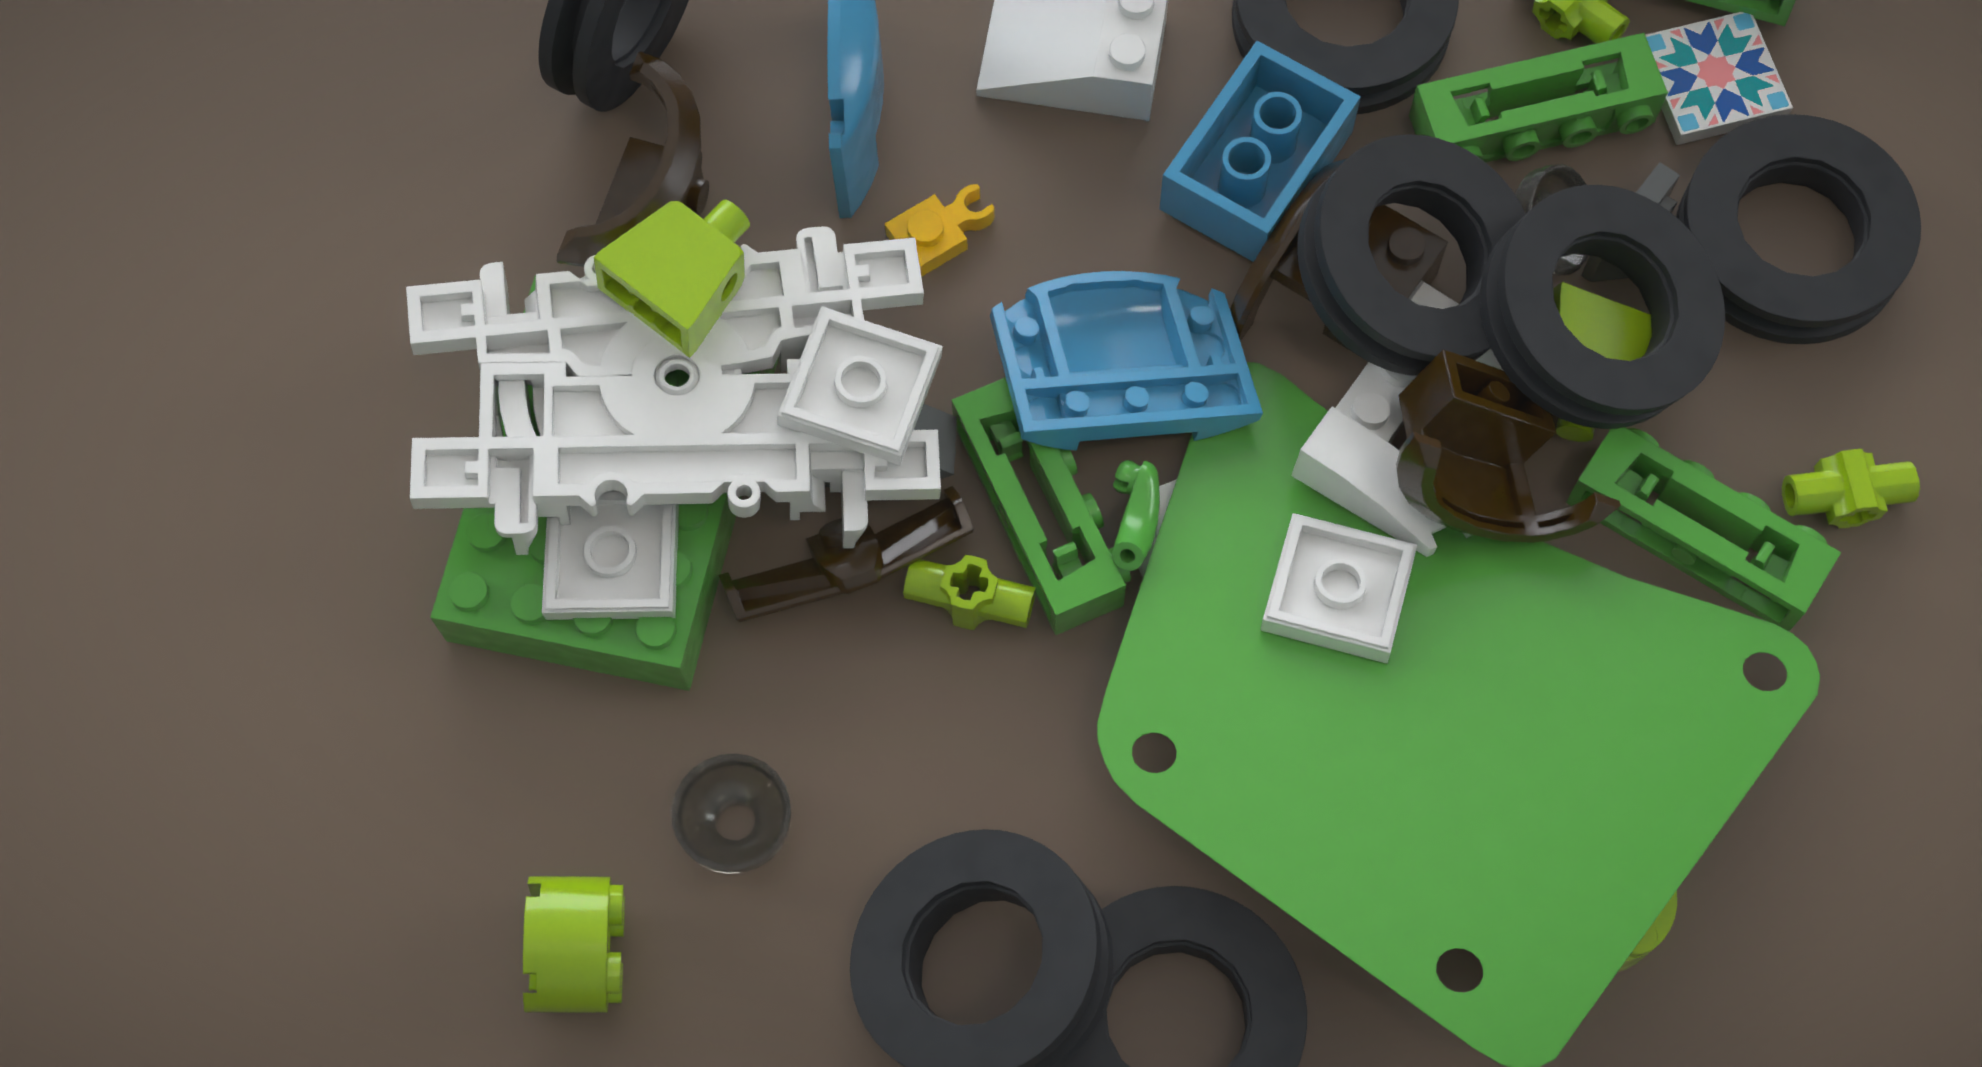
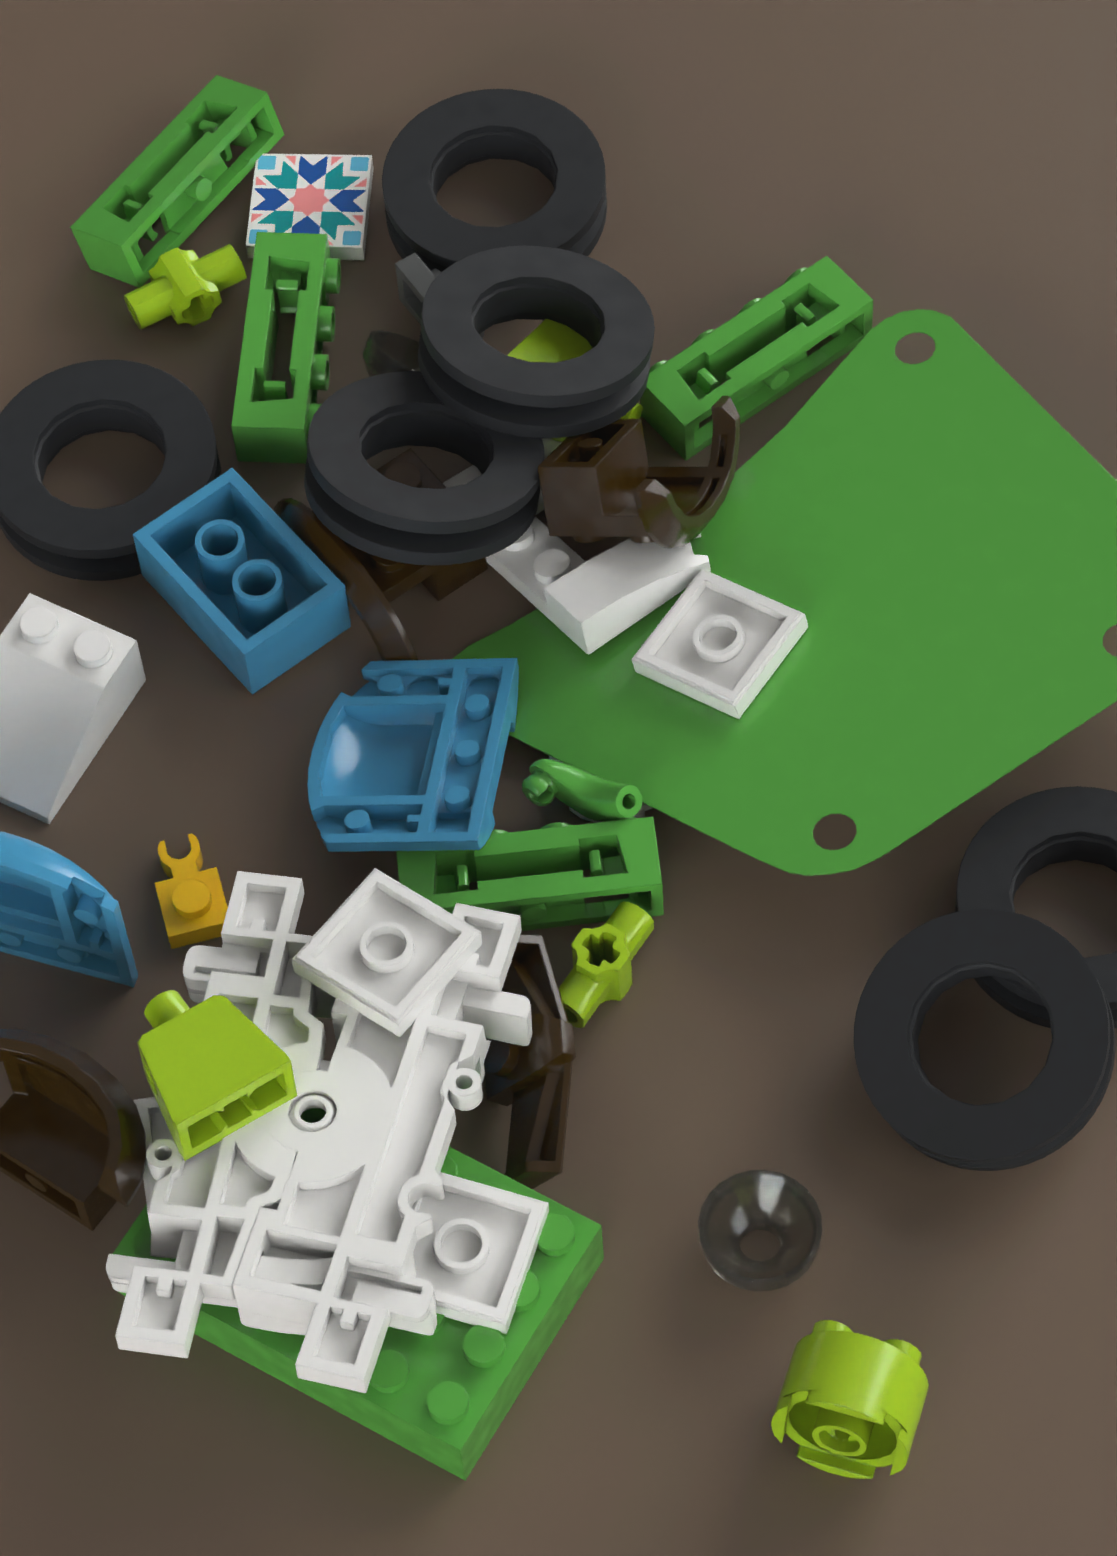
camera: 70 degrees left, 10 degrees down
(1850, 488) = (760, 238): lime axle -> none

